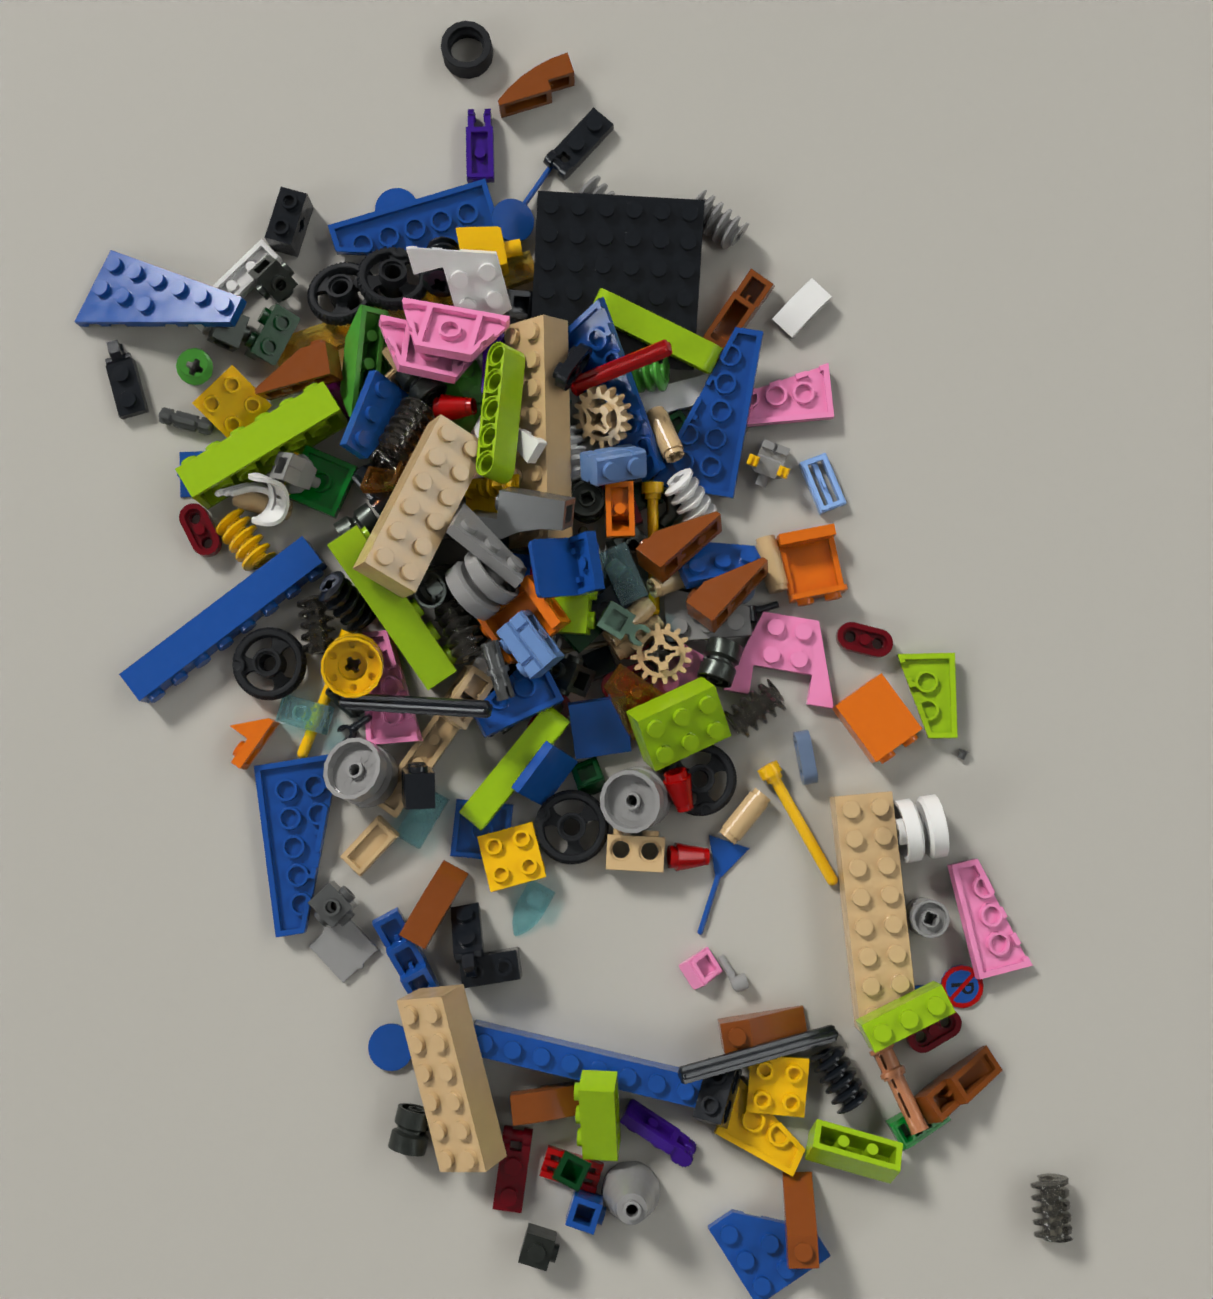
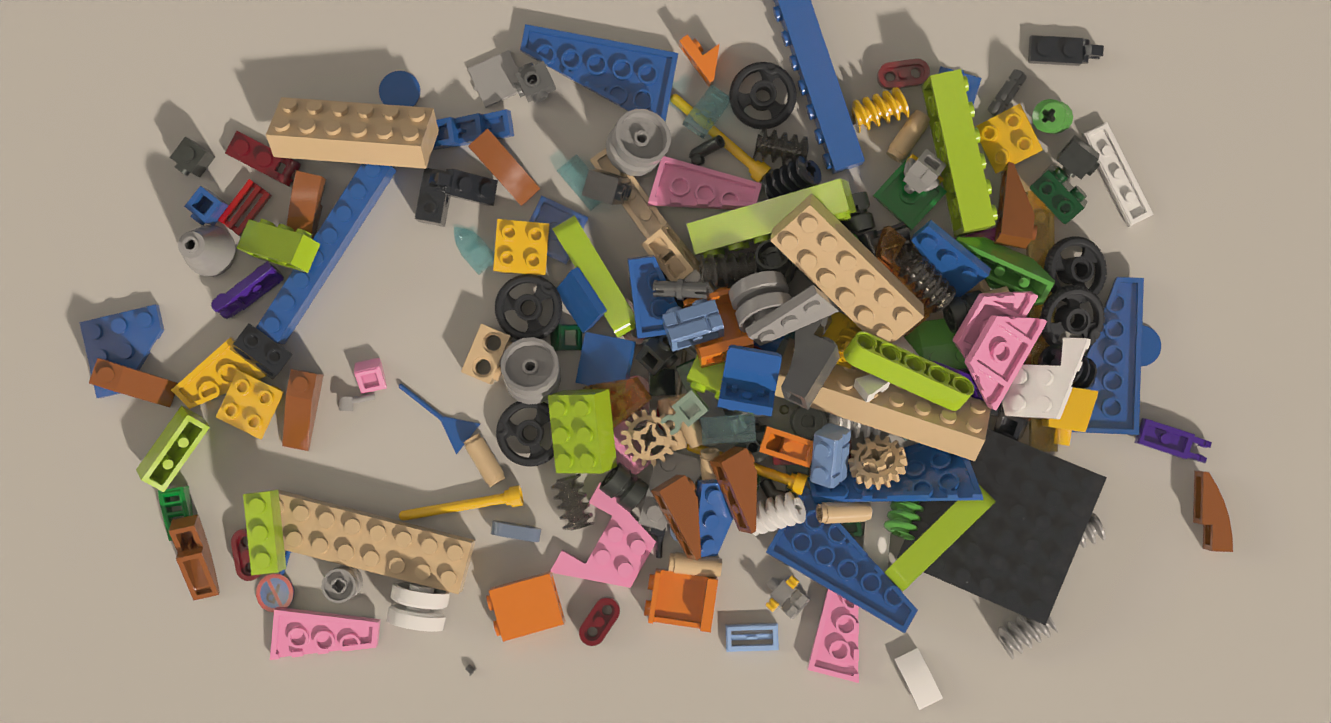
camera: 110 degrees right, 5 degrees up
(150, 296) = (1132, 97): wing -> none
(273, 279) = (1110, 212): pearl dark grey brick -> none
(277, 506) = (898, 147): white helmet -> none
(289, 221) = (1159, 244): black brick -> none
(349, 681) = (719, 159): yellow wheel -> none
(355, 726) = (681, 151): black hand -> none
(370, 845) = (574, 130): tan tile -> none
(410, 1134) = (320, 82): pearl dark grey wheel -> none
(419, 705) = (677, 209): black axle -> none
(454, 406) = (933, 331): red cone -> none
(463, 30) = (1289, 467): black tyre -> none
(515, 216) = (1093, 449): blue piece -> none
(571, 1170) = (242, 206): dark green slope -> none
(577, 360) = (925, 443): black plate -> none
(579, 143) = (1144, 533): black plate -> none
(622, 366) = (914, 491): red axle -> none
(679, 787) = (526, 411): red cone -> none
(686, 856) = (467, 397): red cone -> none
(739, 308) = (936, 621): dark orange slope -> none
(757, 1054) = (280, 396): black axle -> none
(840, 1077) = (236, 460): black piece -> none
(893, 1074) = (223, 505): nougat pin -> none
(933, 689) = (533, 665): lime wing -> none
(1052, 1208) = (66, 598): clear smoke piece -> none

